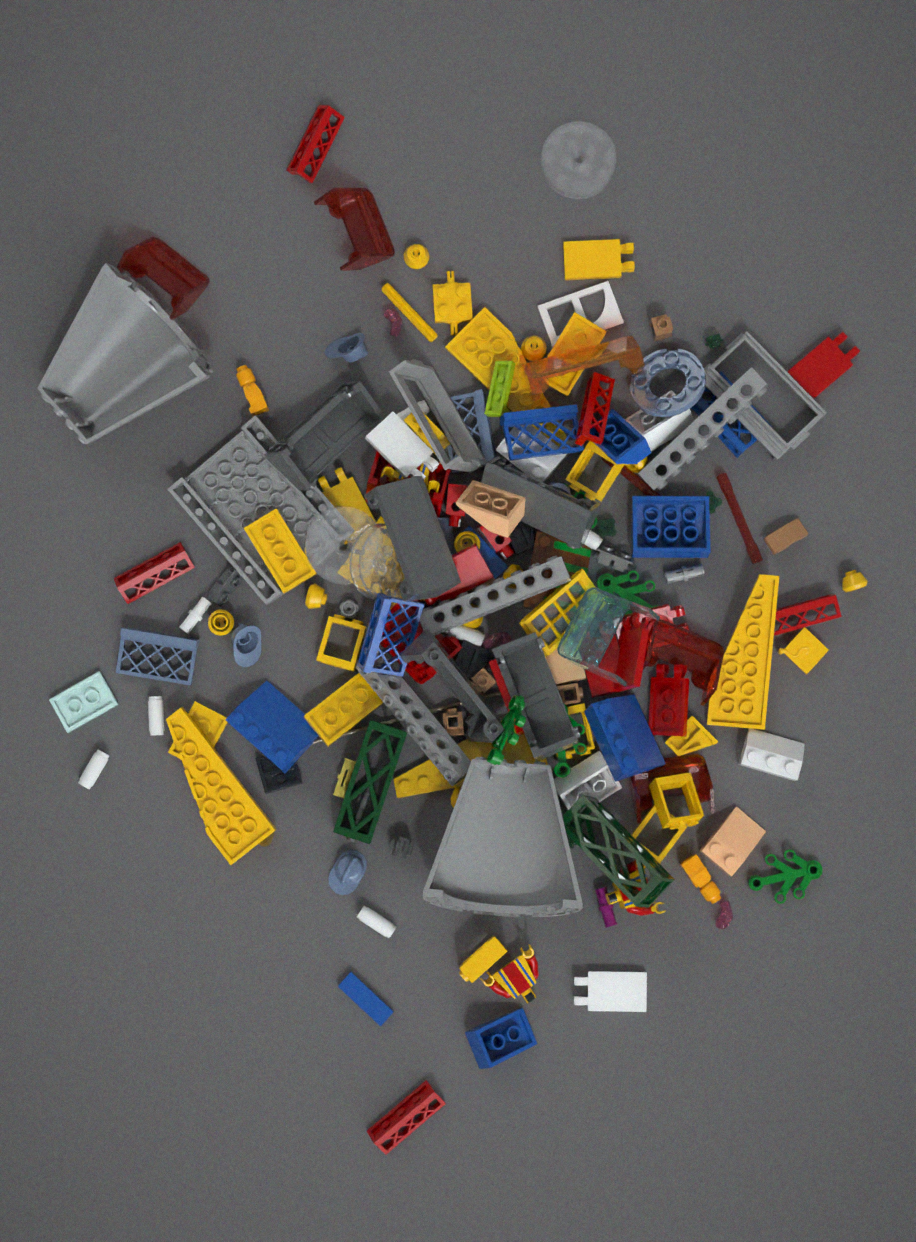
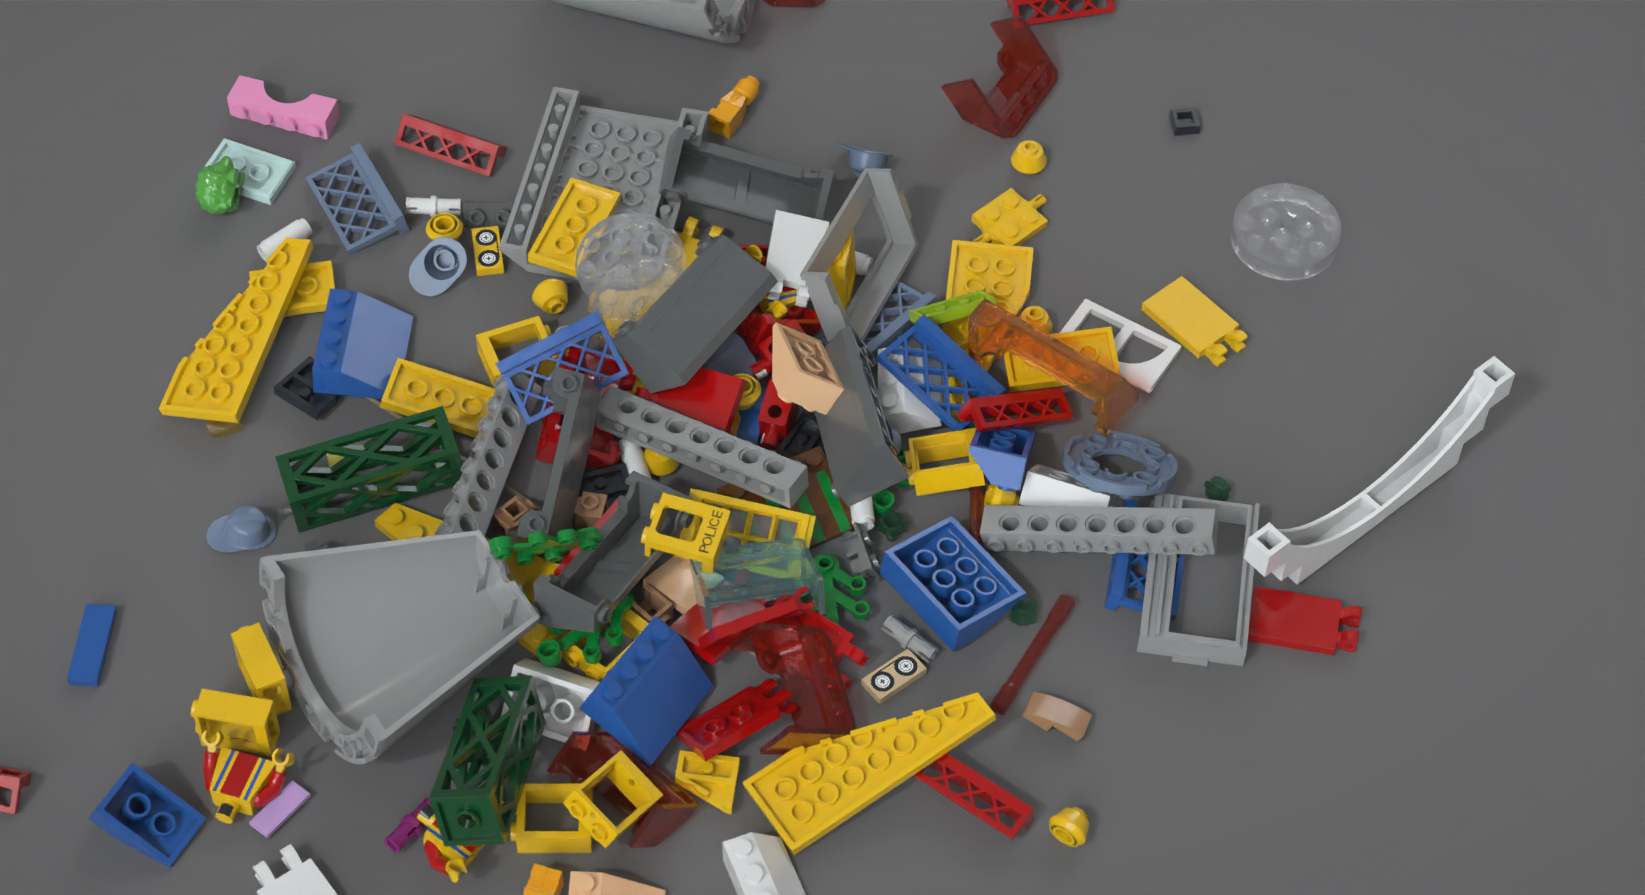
camera: 50 degrees right, 30 degrees down
(72, 637) = (311, 116): none -> bright pink arch
(92, 729) = (219, 187): none -> bright green animal
(93, 769) = (174, 221): white piece -> none
(250, 606) = (487, 251): none -> tile
(376, 922) = (200, 594): white piece -> none
(394, 317) = (938, 185): clear pink arm -> none
(409, 312) = (959, 190): yellow axle -> none
(456, 147) = (1184, 121): none -> black tile
(458, 925) = (260, 667): none -> yellow window
(545, 967) = (280, 809): none -> lavender piece
(567, 640) = (709, 539): none -> yellow window
(662, 327) = (1179, 425): medium nougat window -> none
(698, 598) = (893, 676): none -> tile
(784, 206) = (1306, 548): none -> white arch
(804, 650) = (932, 829): yellow hat -> none

